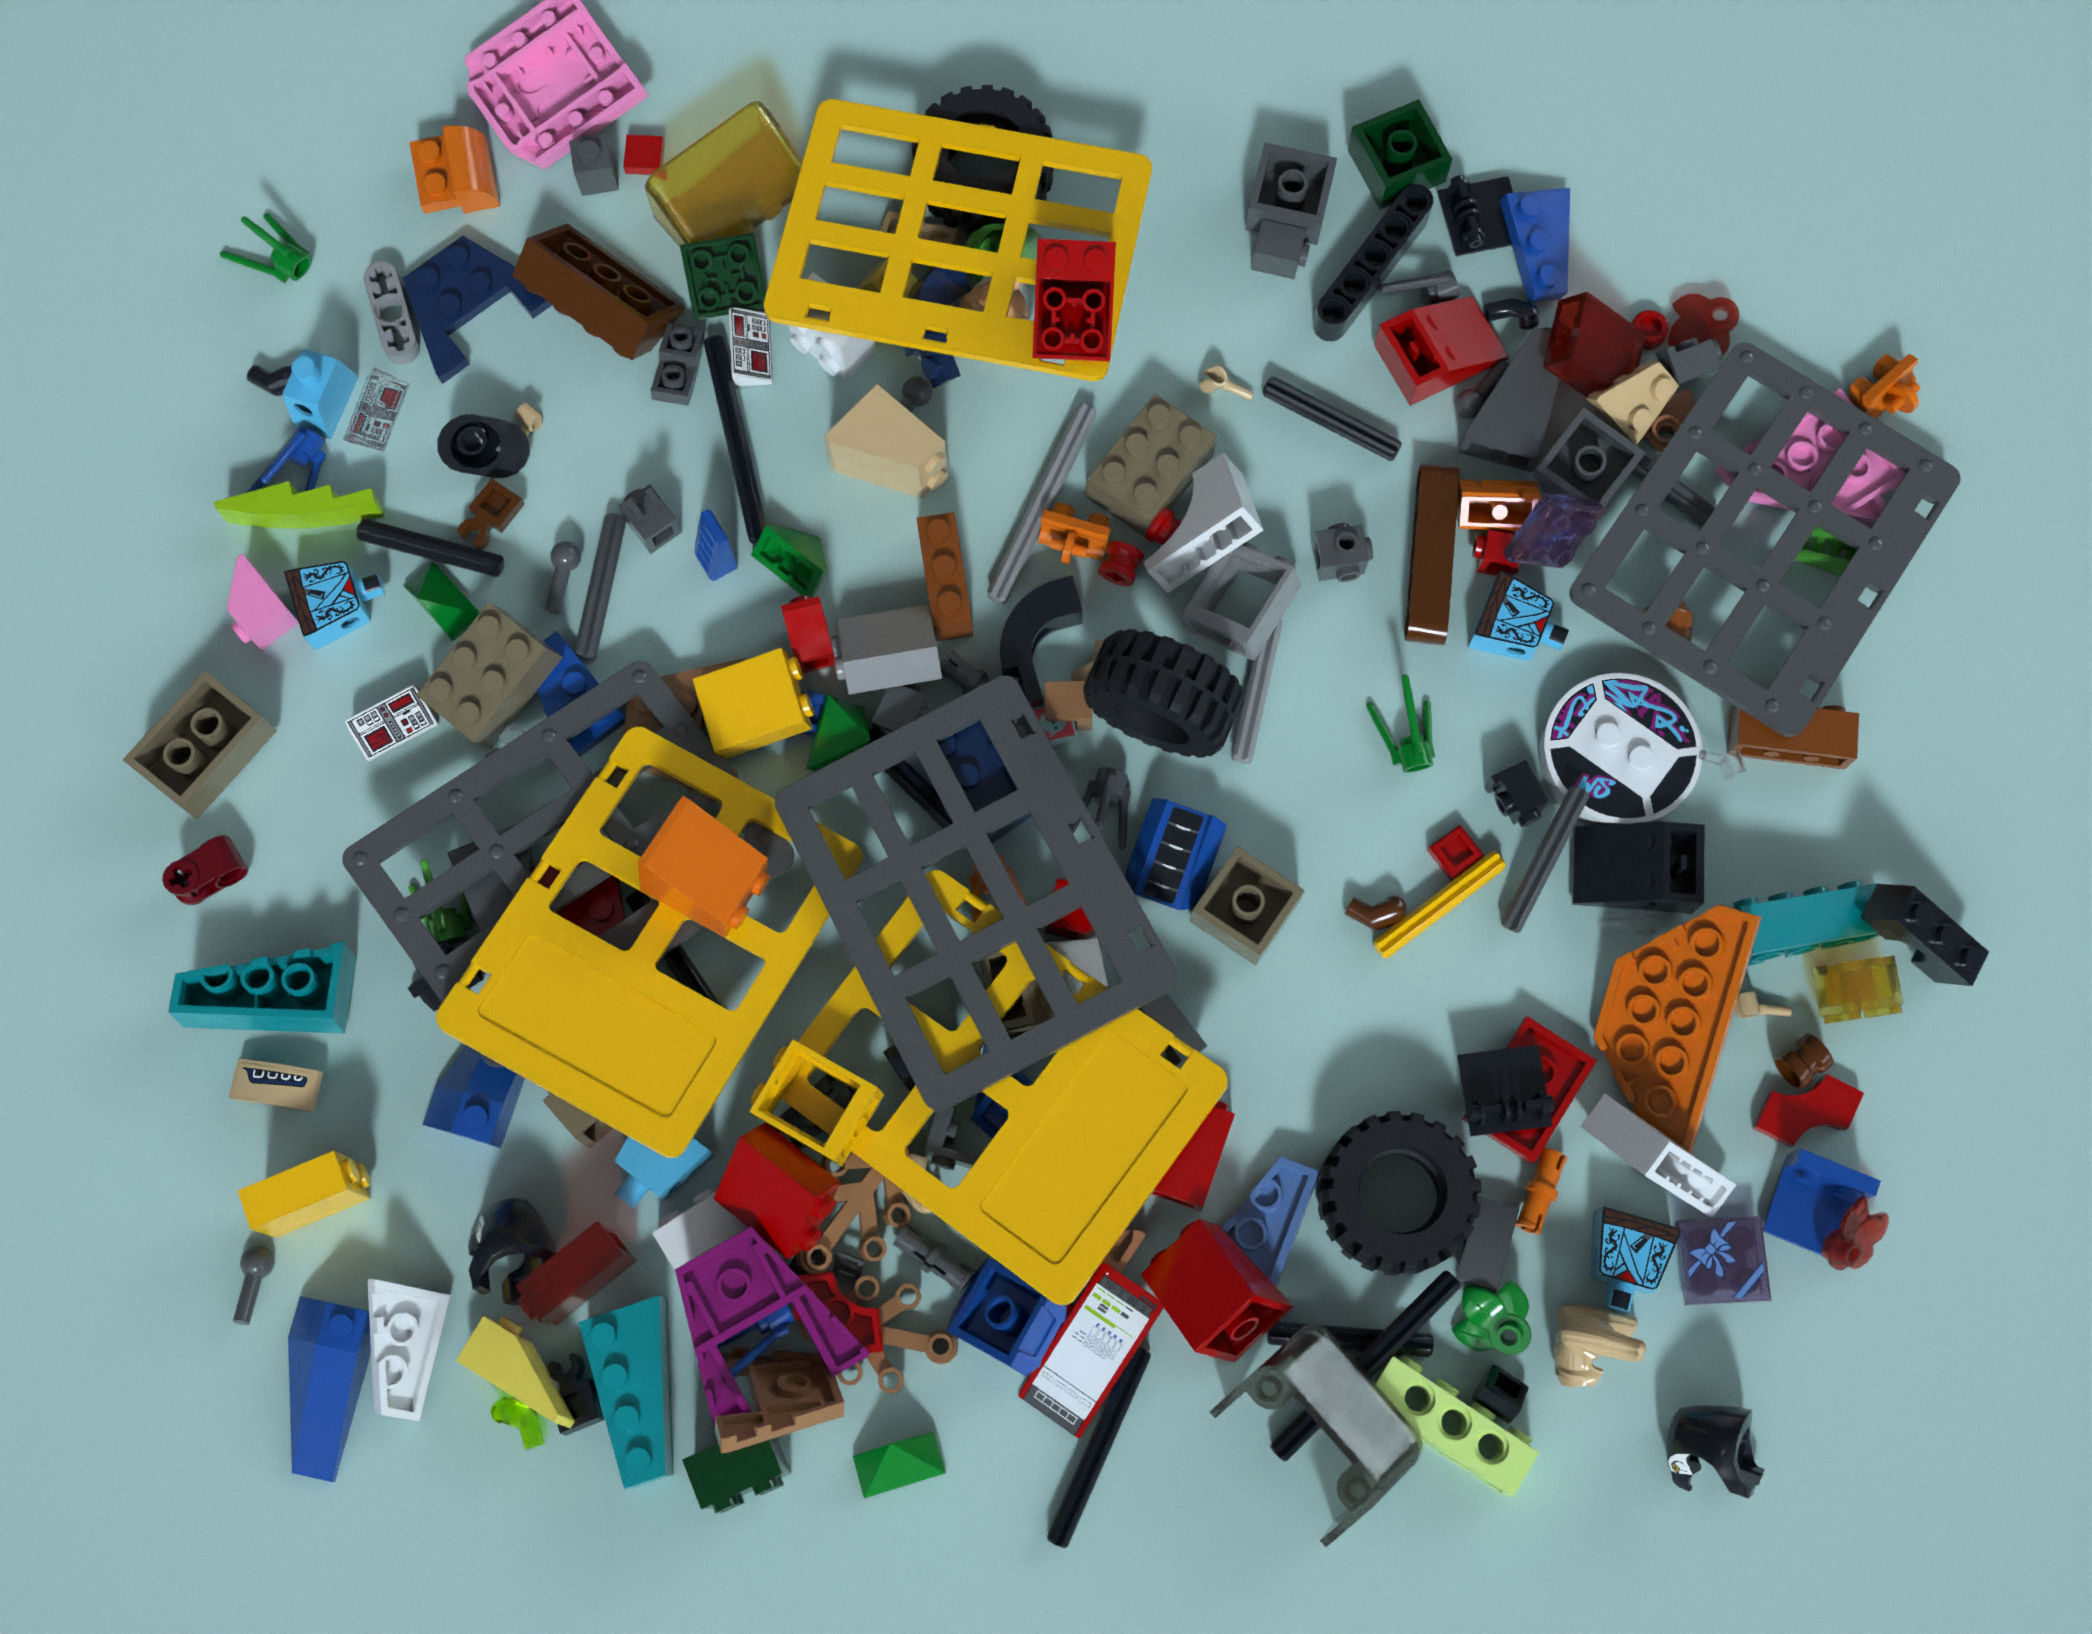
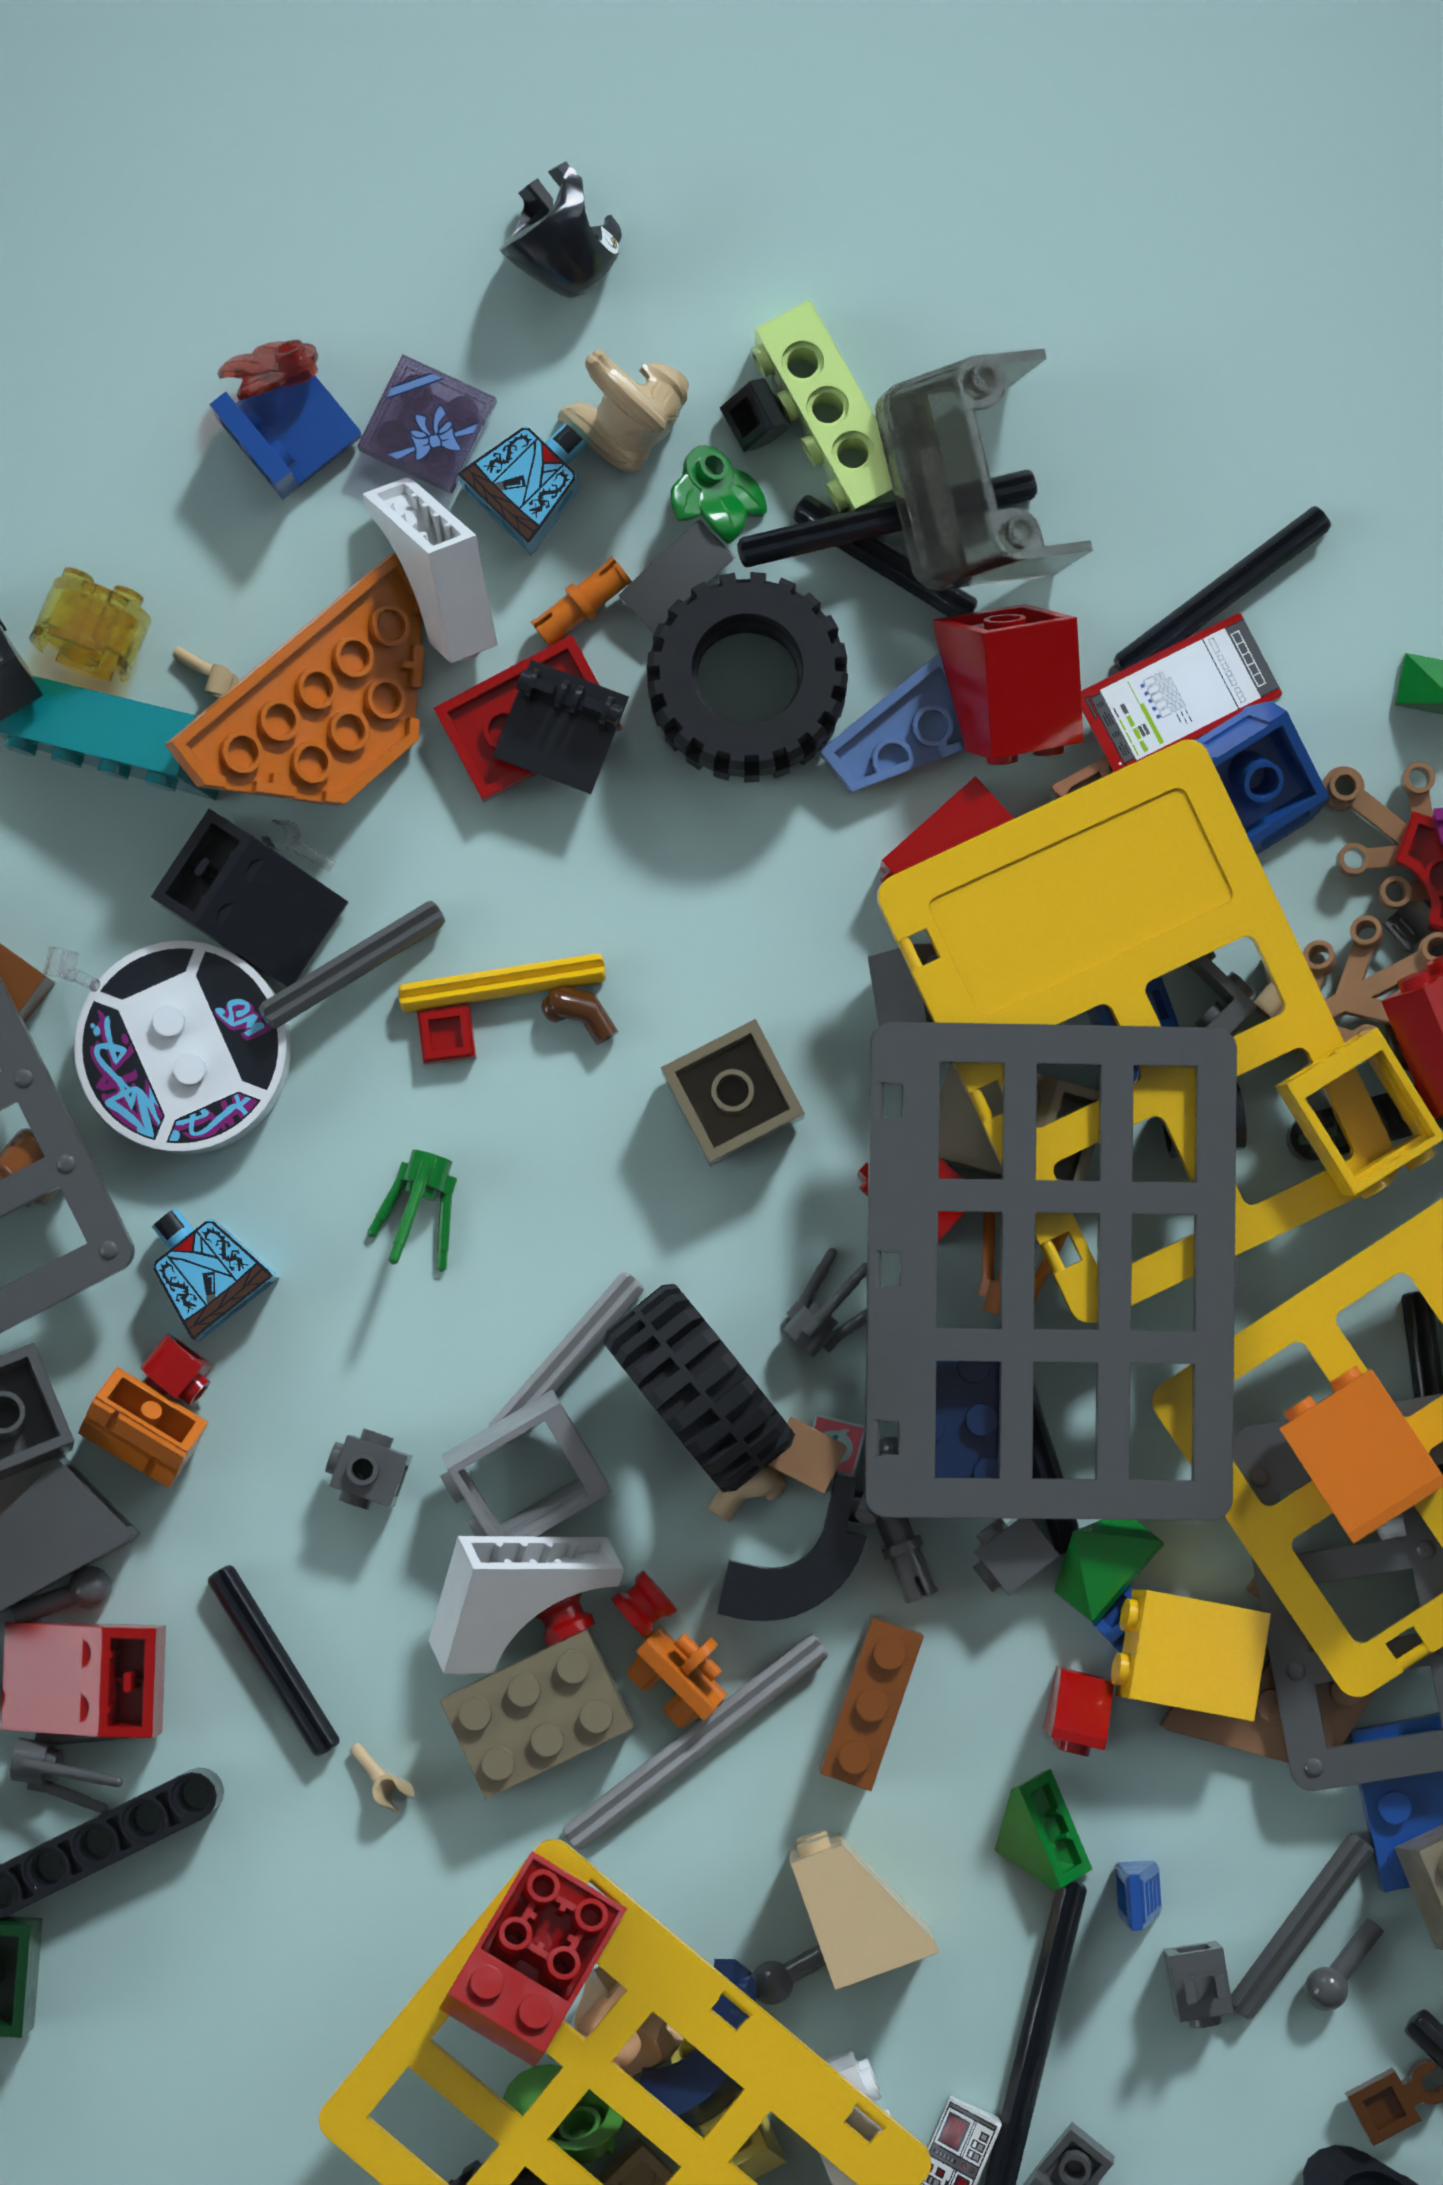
camera: 150 degrees left, 10 degrees up
(886, 649) = (994, 1638): light grey brick -> none
(934, 1257) = (1301, 888): dark grey pin -> none
(1174, 854) = (782, 1202): blue slope -> none
(1280, 249) = (206, 1925): dark grey brick -> none
(1291, 189) = (149, 1993): dark grey brick -> none
(1432, 554) = (256, 1413): reddish brown beam -> none
(1518, 794) = (335, 1059): black brick -> none
(1554, 530) = (102, 1346): clear purple tile -> none
(1803, 1061) = (200, 585): reddish brown wheel -> none
(1827, 1104) = (204, 529): red tile -> none

